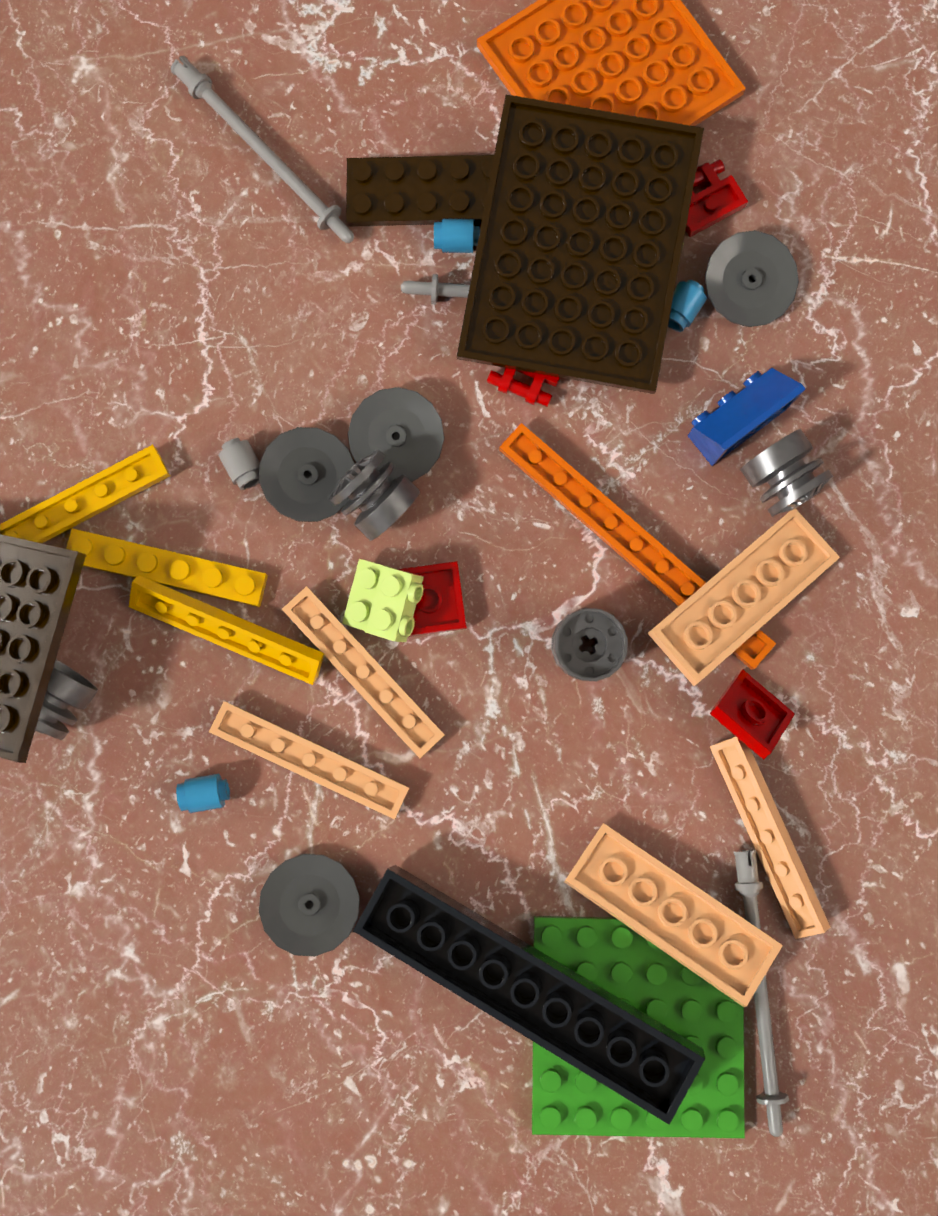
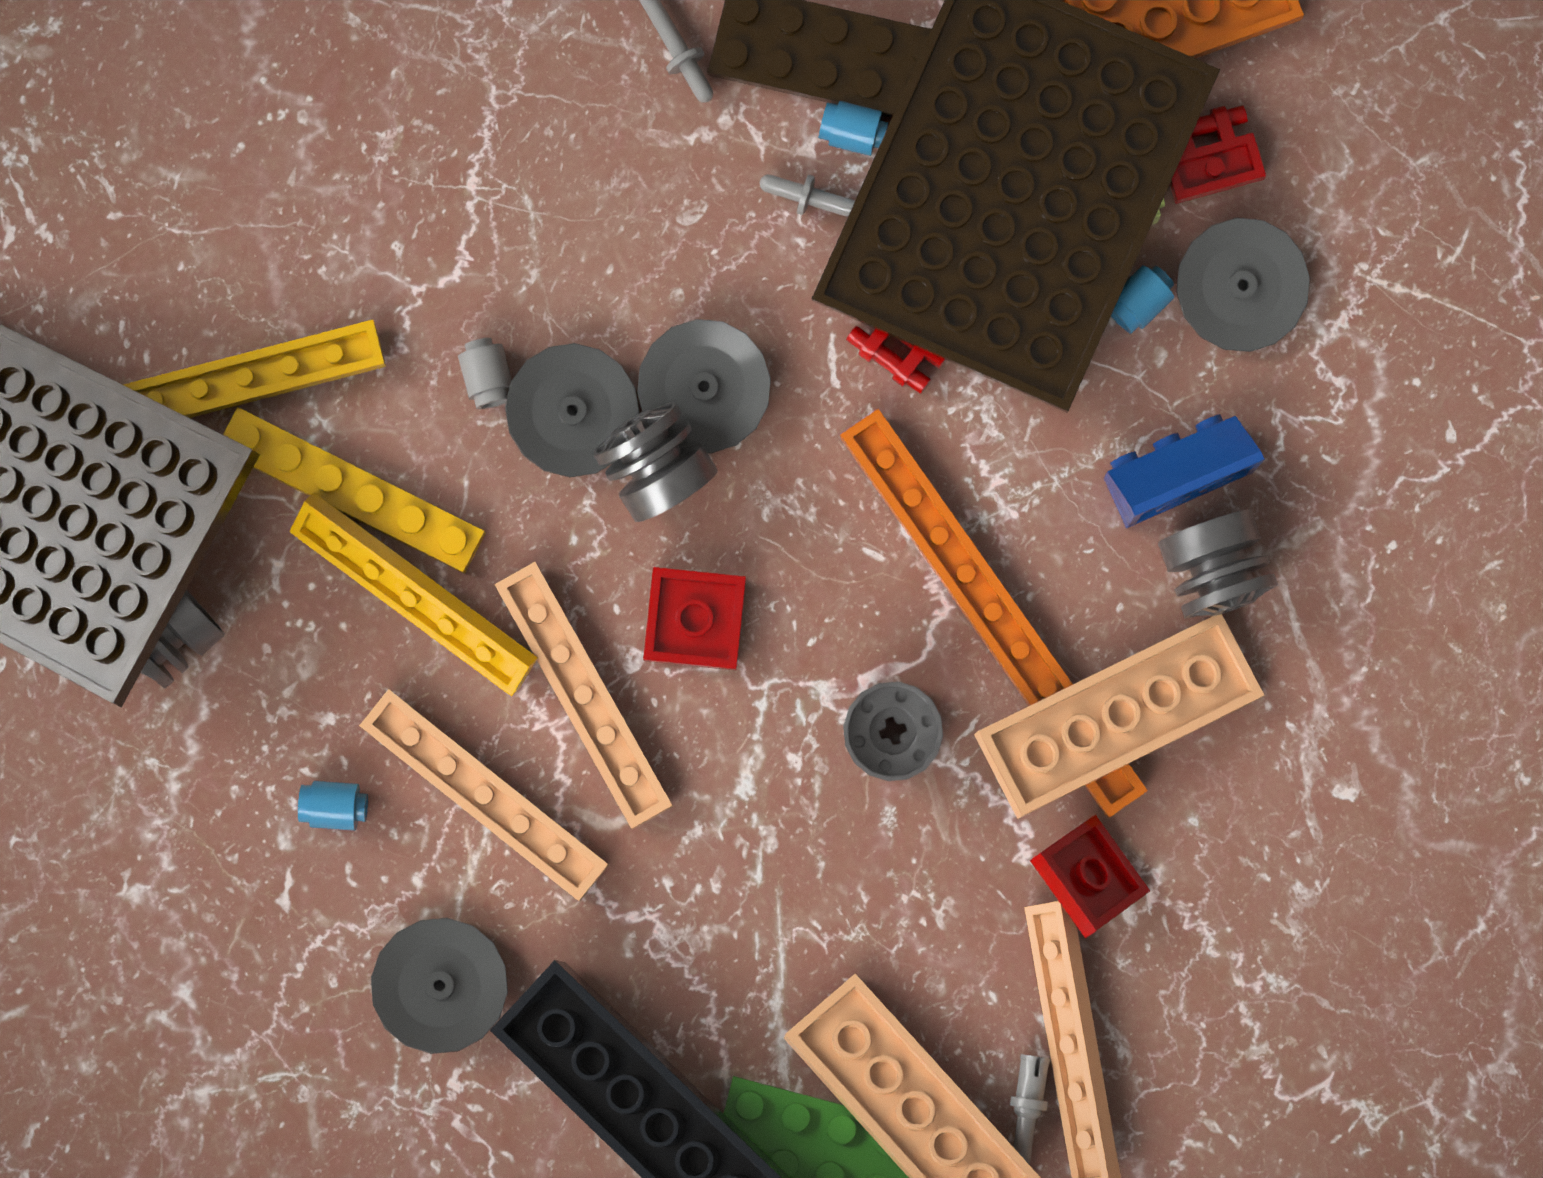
camera: 15 degrees right, 0 degrees up
(383, 601) = (633, 606): yellowish green plate -> none

